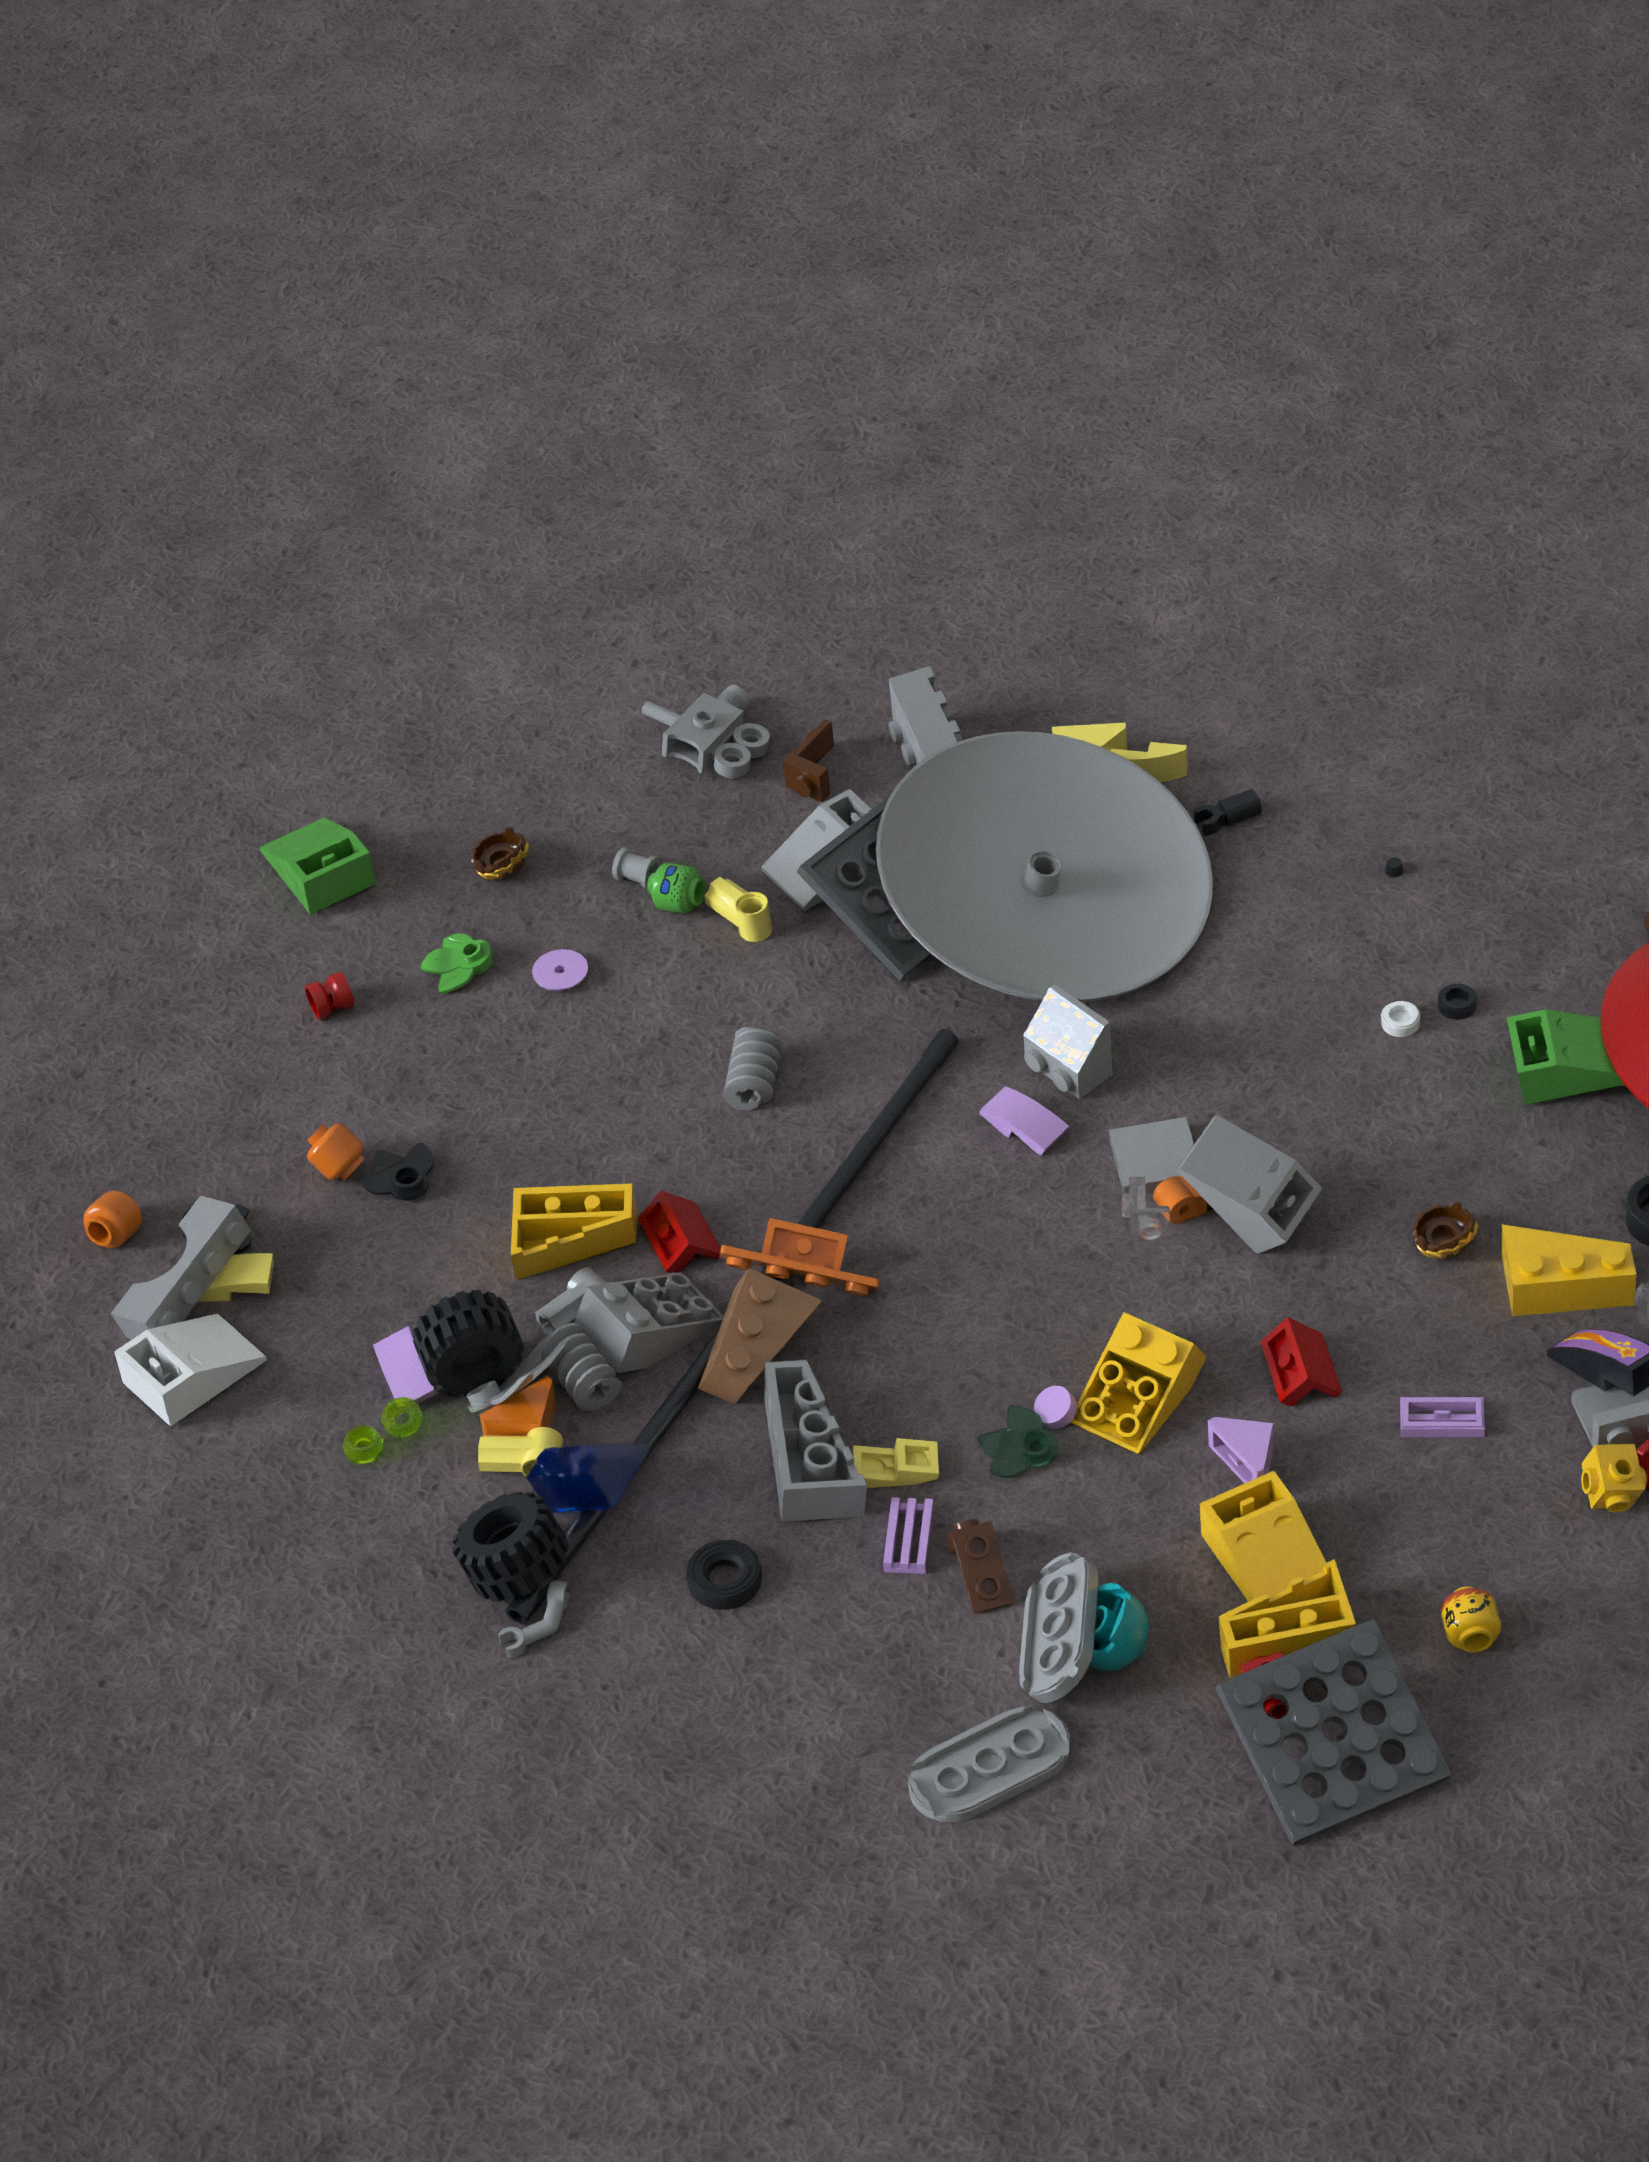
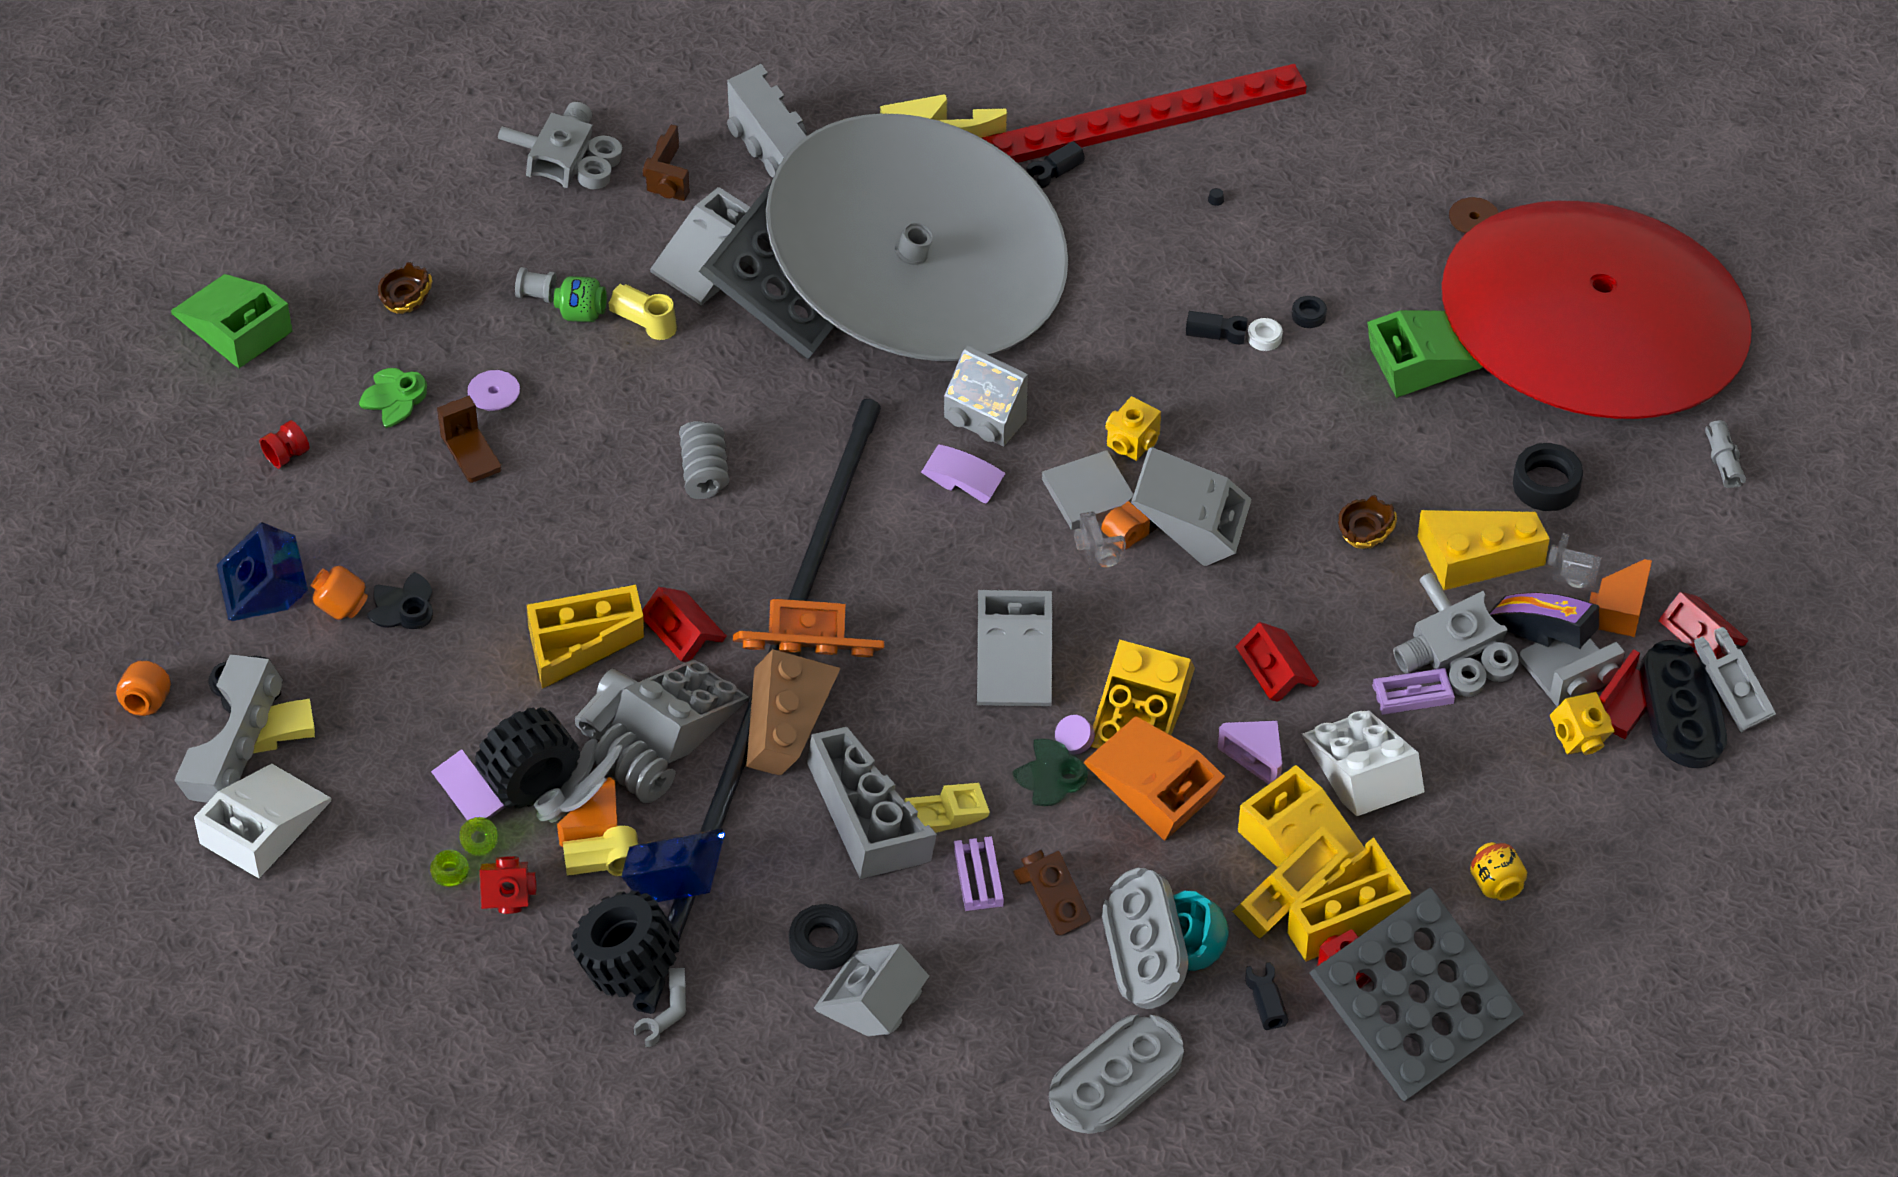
camera: 20 degrees left, 5 degrees up
(267, 1122) = (262, 574): none -> clear blue slope
(411, 1469) = (497, 895): none -> red brick
(515, 1015) = (465, 441): none -> reddish brown bracket
(758, 1637) = (874, 990): none -> light grey slope
(1017, 1306) = (1014, 648): none -> light grey slope
(1125, 1462) = (1155, 775): none -> orange slope
(1175, 1712) = (1267, 997): none -> black bar
(1219, 1093) = (1133, 428): none -> yellow brick
(1257, 1573) = (1290, 881): none -> yellow slope
(1347, 1003) = (1216, 327): none -> black bar
(1350, 770) = (1151, 113): none -> red plate
(1361, 1483) = (1366, 762): none -> white slope
(1500, 1366) = (1455, 637): none -> light grey piece

